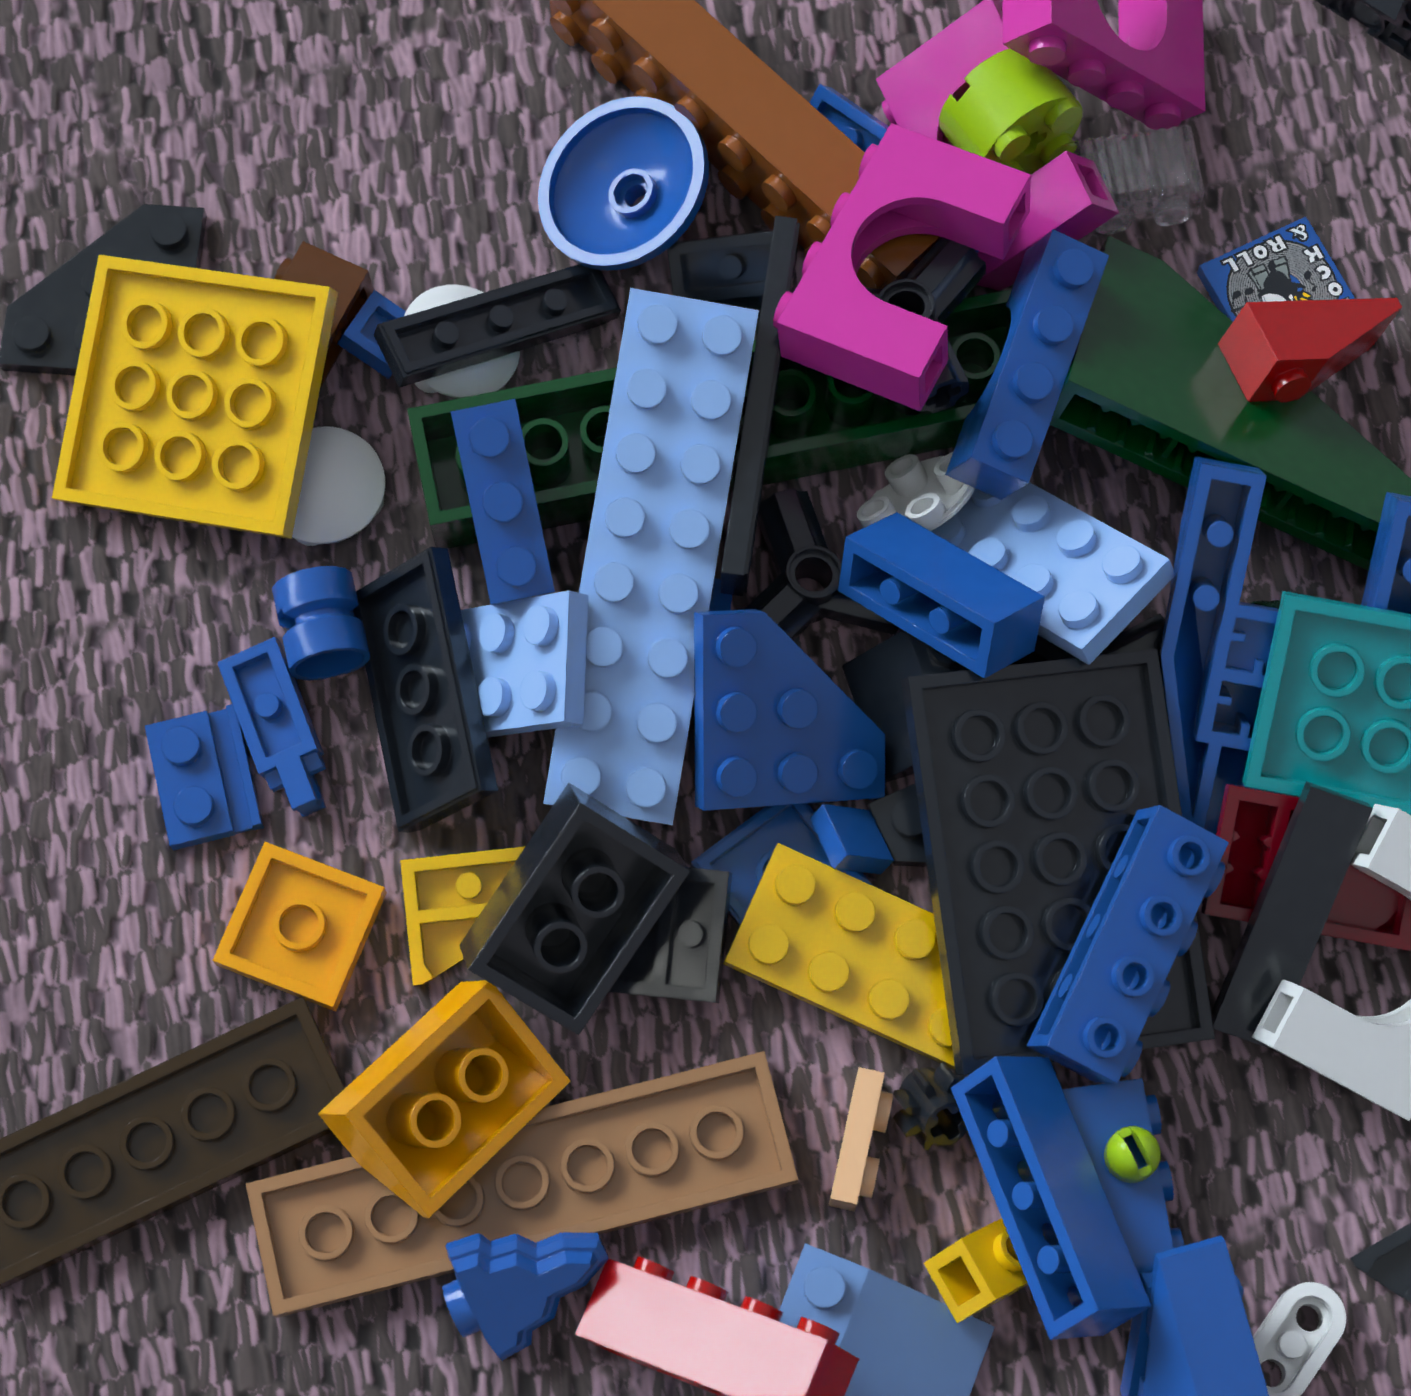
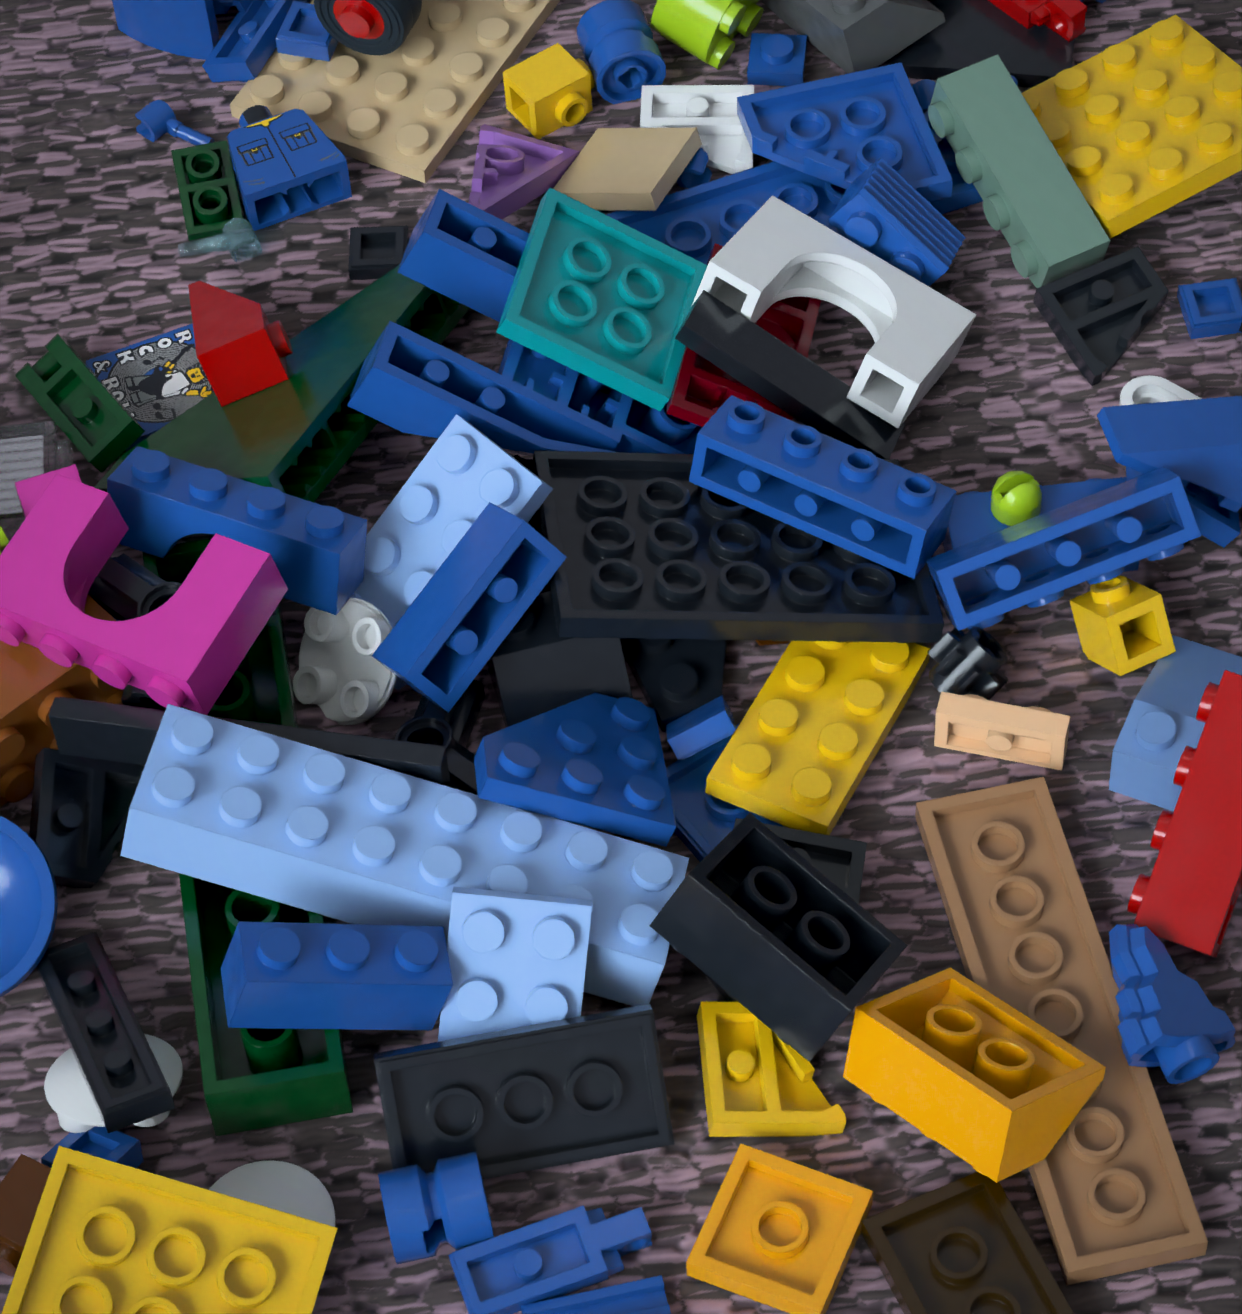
camera: 85 degrees left, 20 degrees down
(1240, 214) = (80, 404): none -> dark green plate

